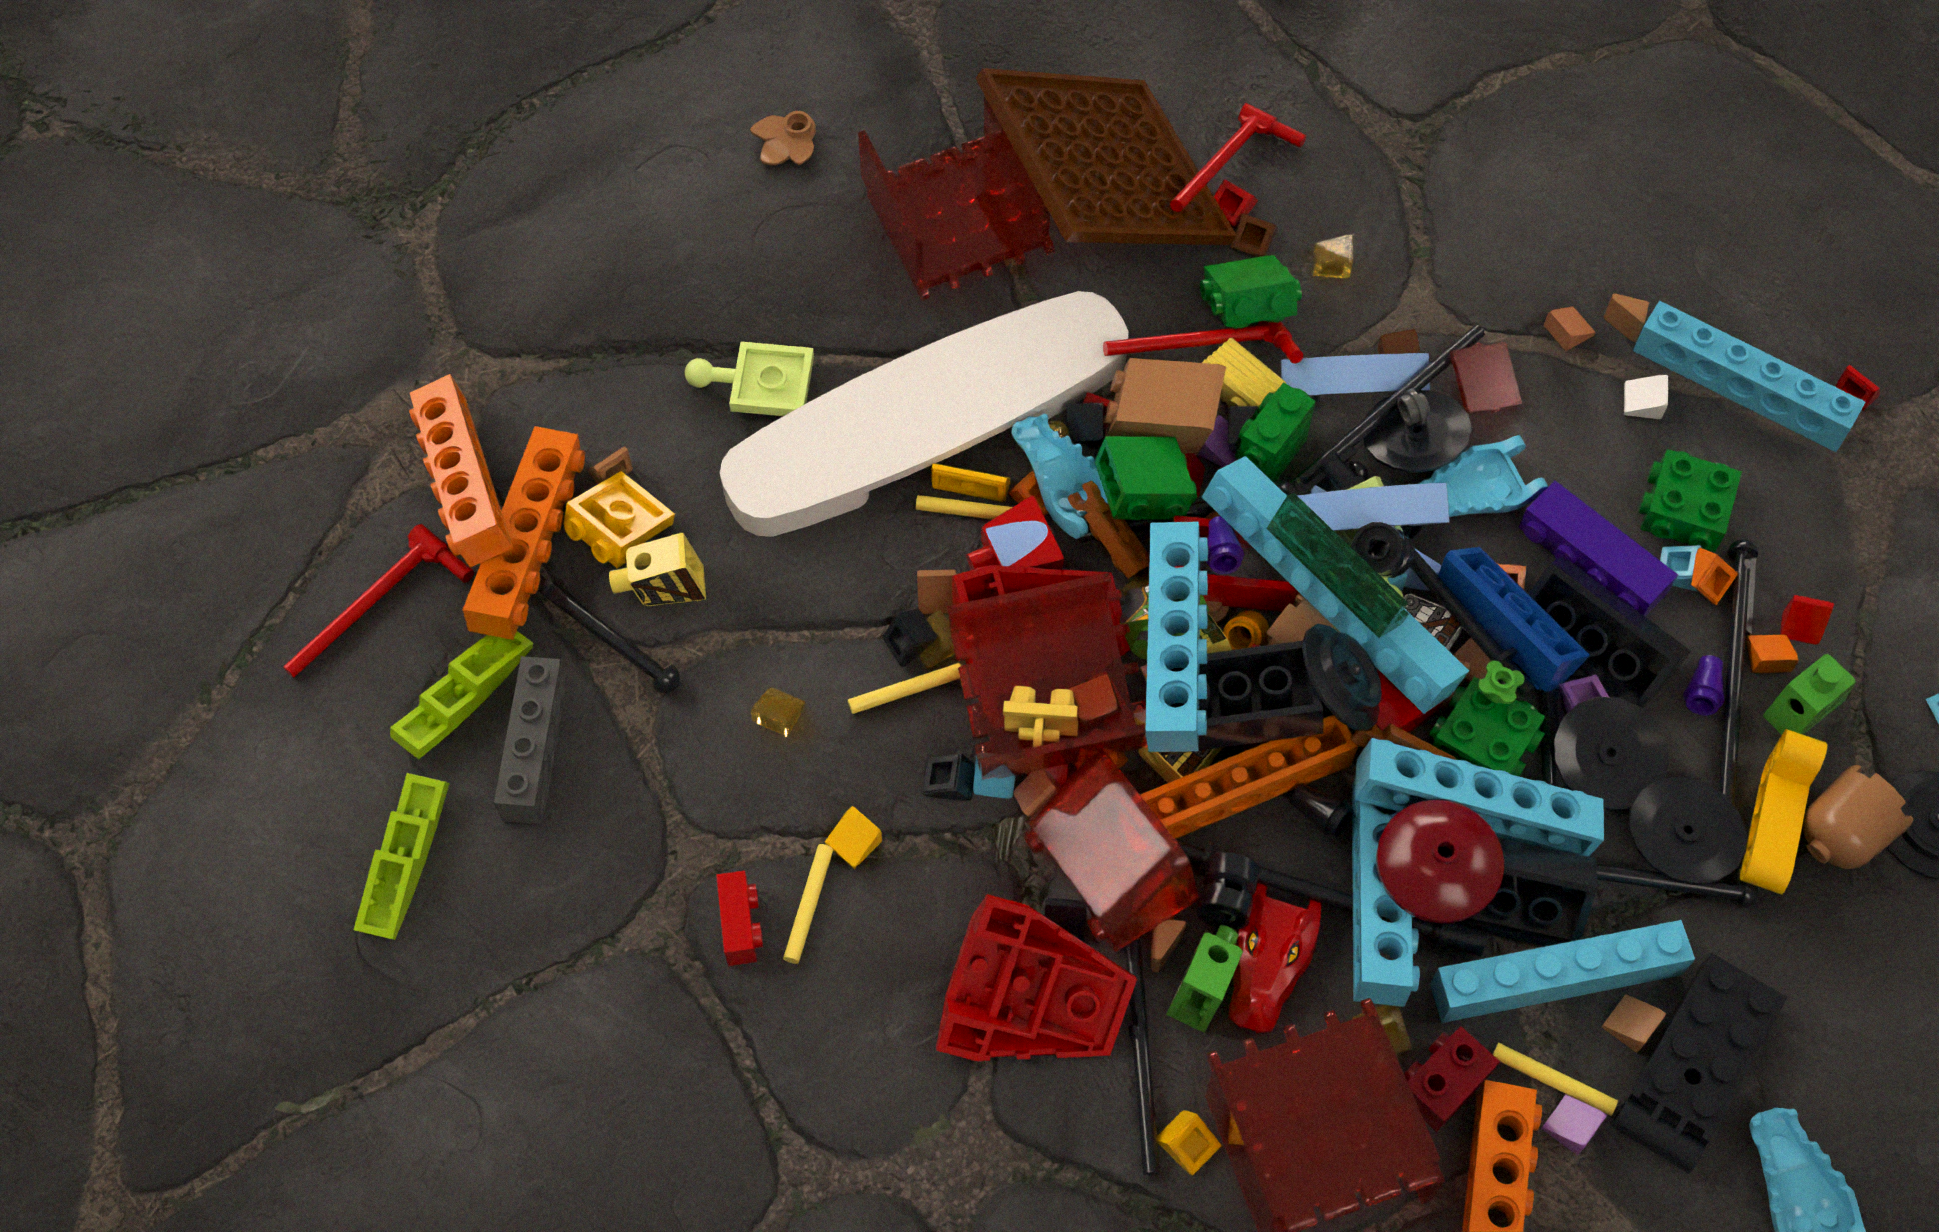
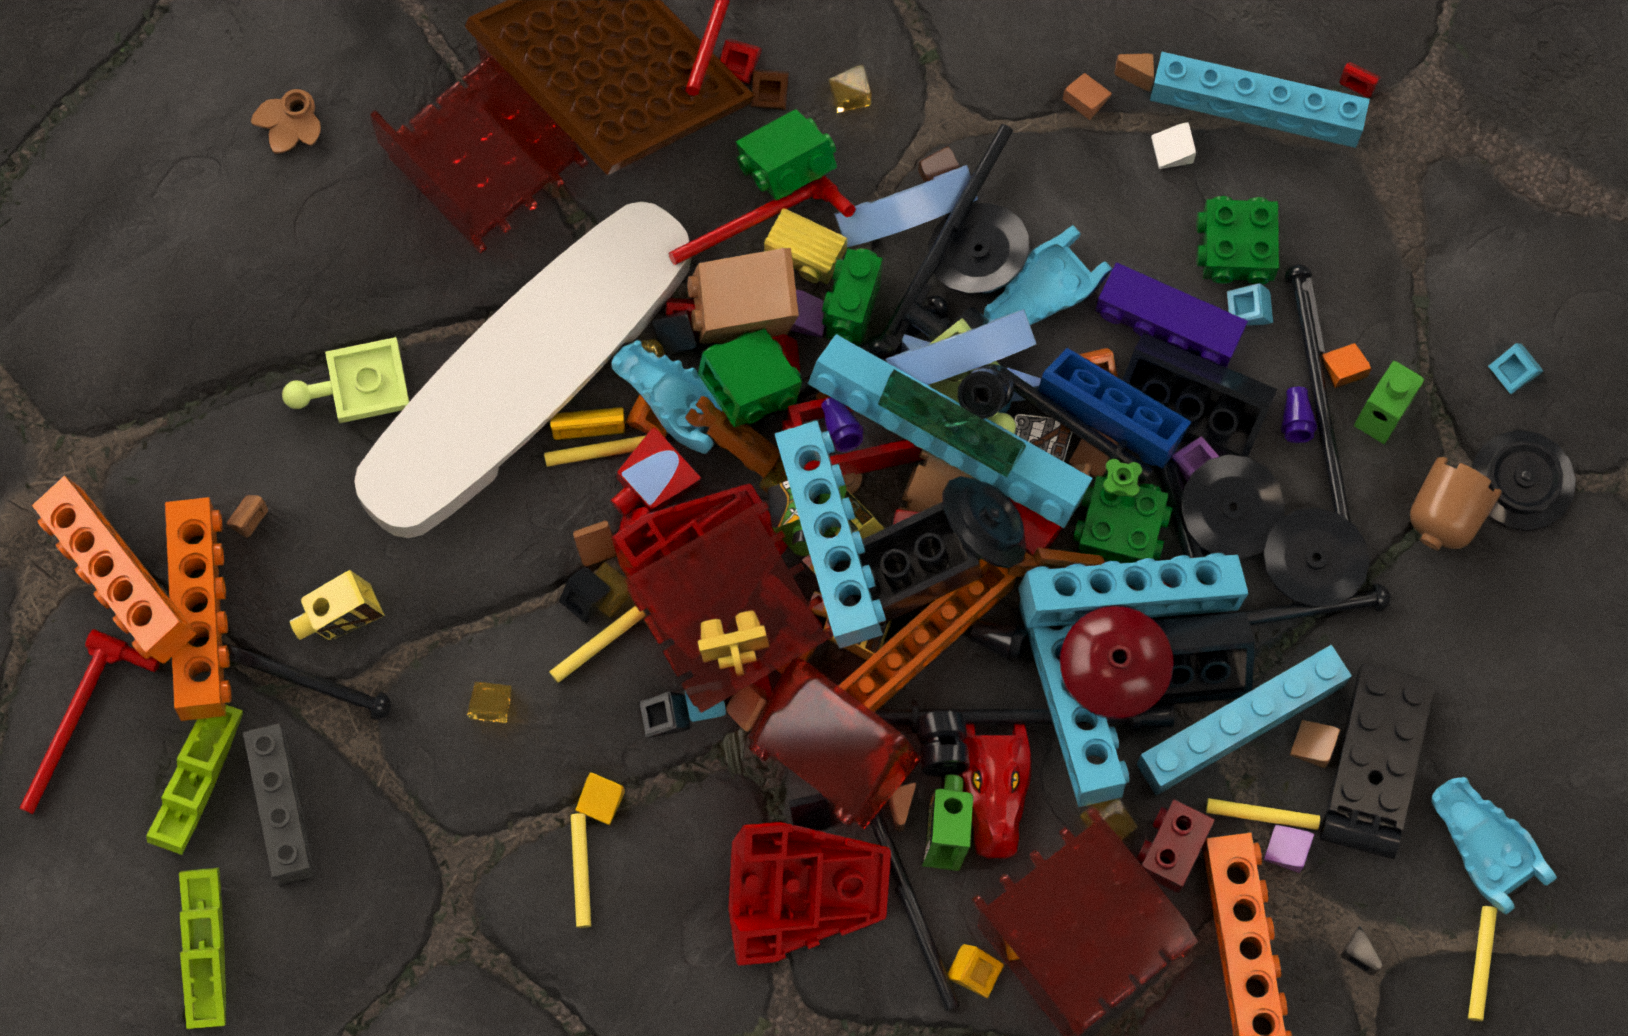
camera: 20 degrees left, 10 degrees up
(615, 518) = (275, 567): yellow plate -> none
(738, 930) = (518, 892): red piece -> none
(1096, 700) = (775, 610): reddish brown slope -> none
(1236, 419) = (816, 295): black slope -> none
(1253, 622) = (884, 496): light orange brick -> none
(1413, 407) = (970, 230): dark grey plate -> none
(1485, 378) = (1025, 174): clear red piece -> none
(1711, 575) = (1276, 309): orange slope -> none
(1781, 810) = (1389, 517): yellow beam -> none
(1806, 619) = (1368, 325): red slope -> none

